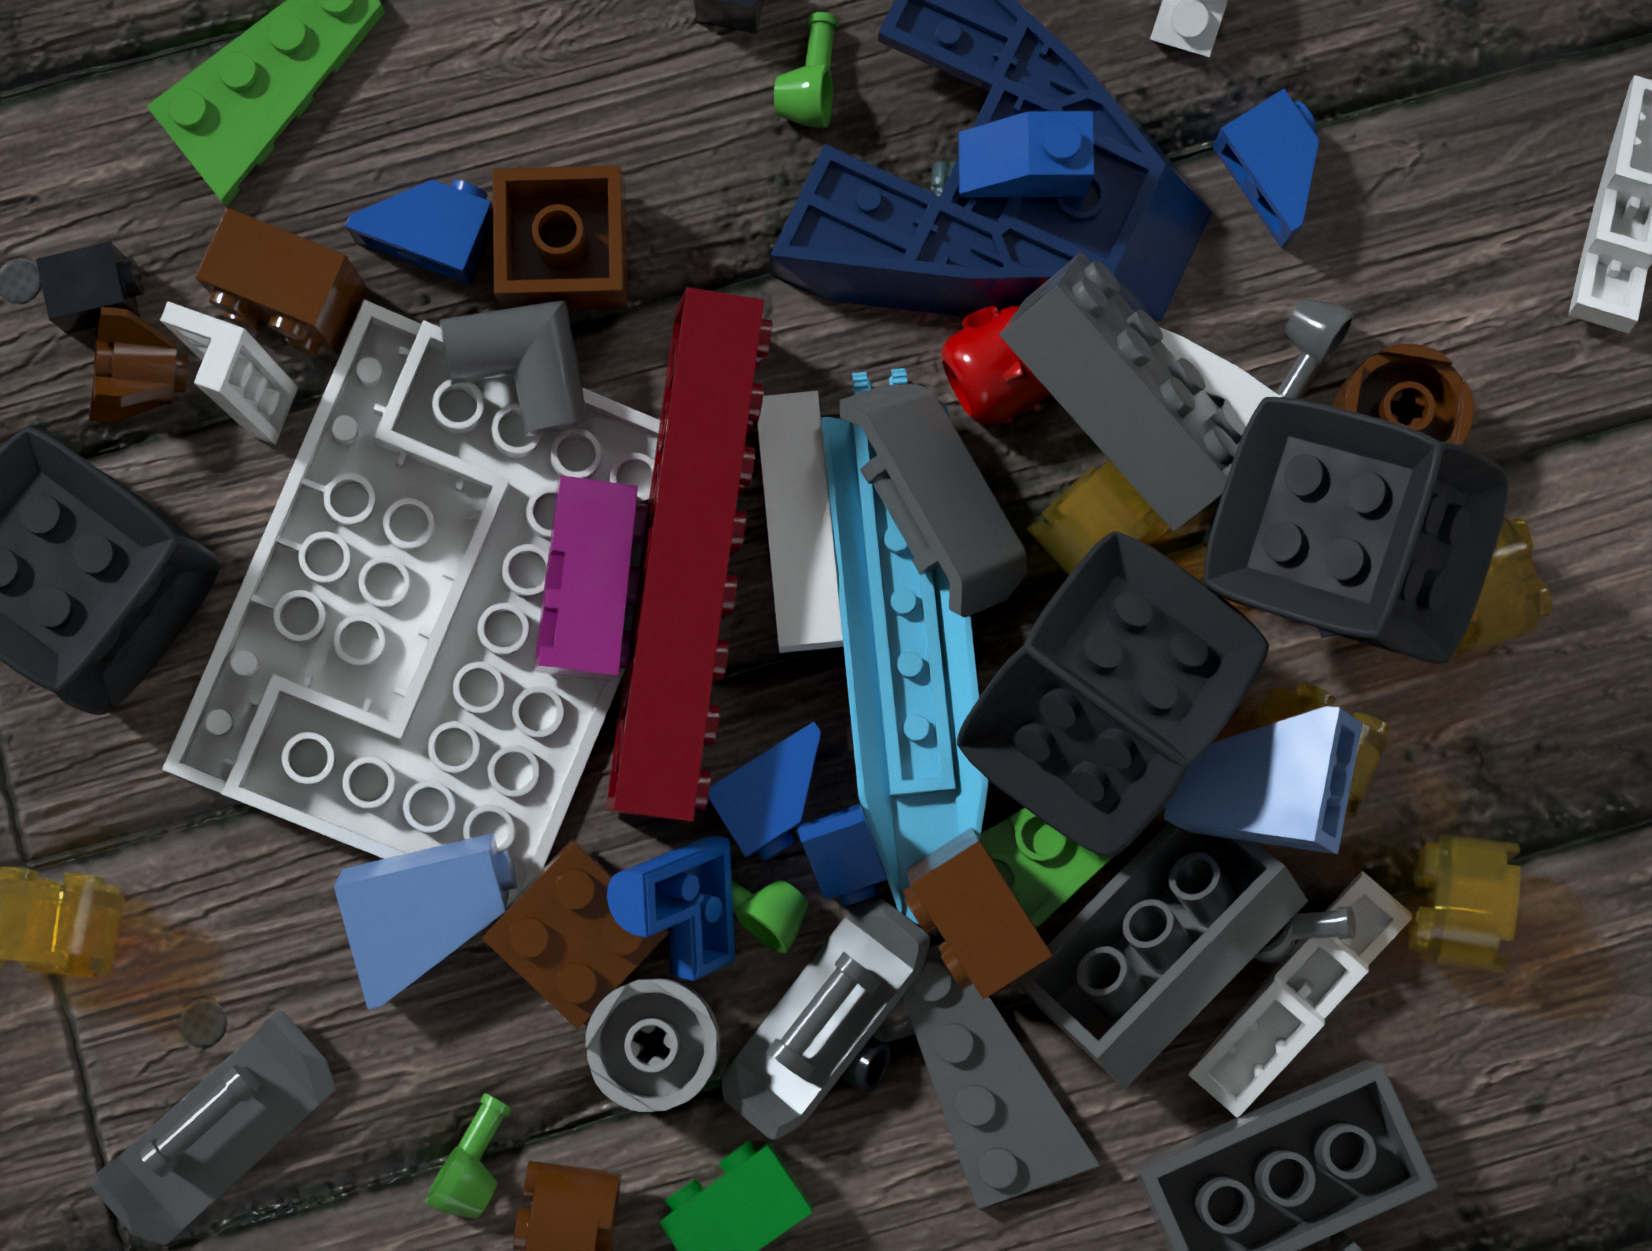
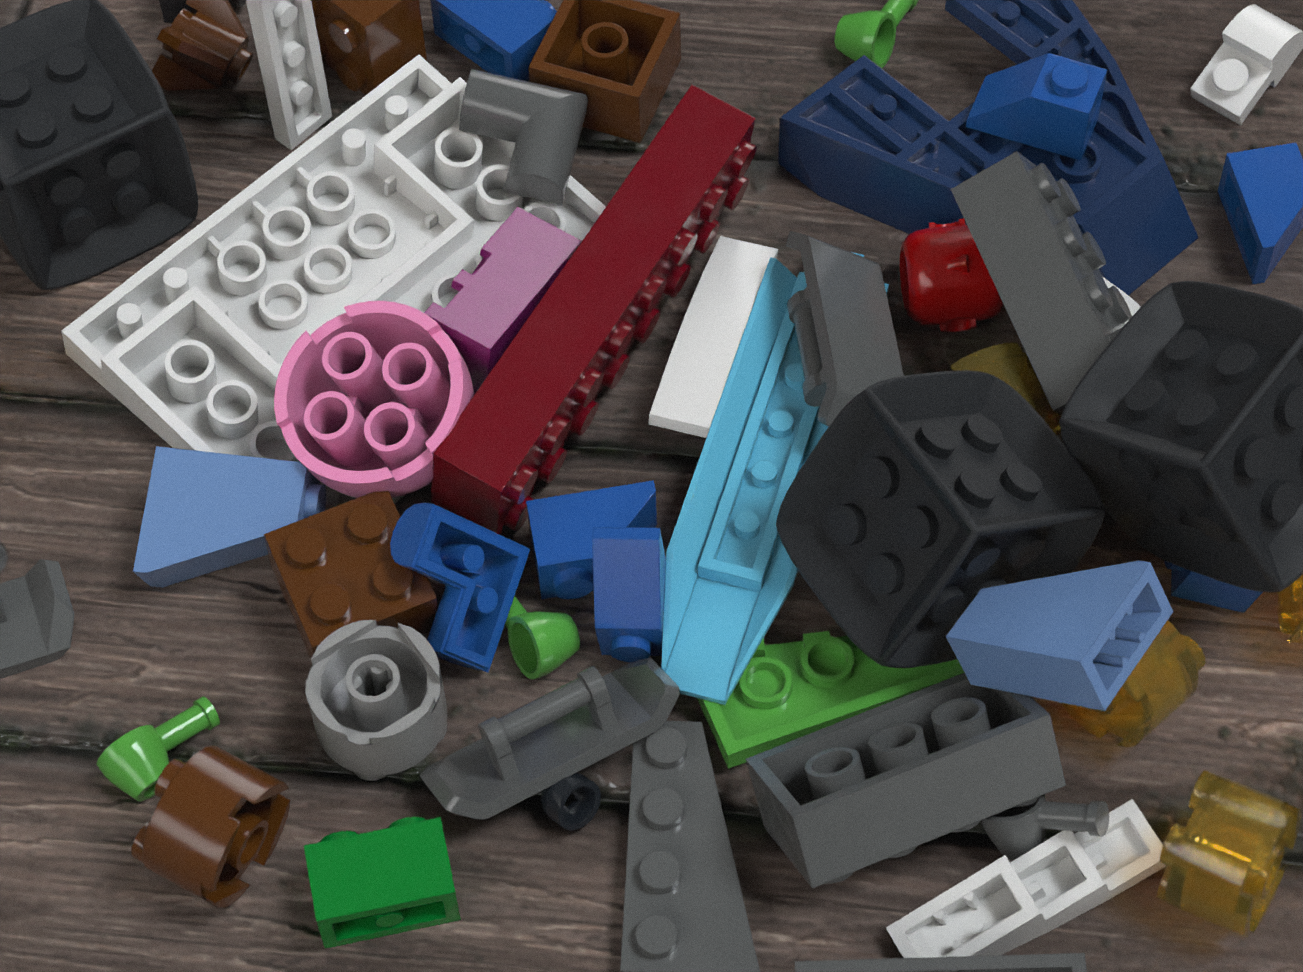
camera: 25 degrees right, 25 degrees down
(492, 784) = (371, 398): none -> bright pink cylinder
(976, 913) = (728, 662): reddish brown brick -> none

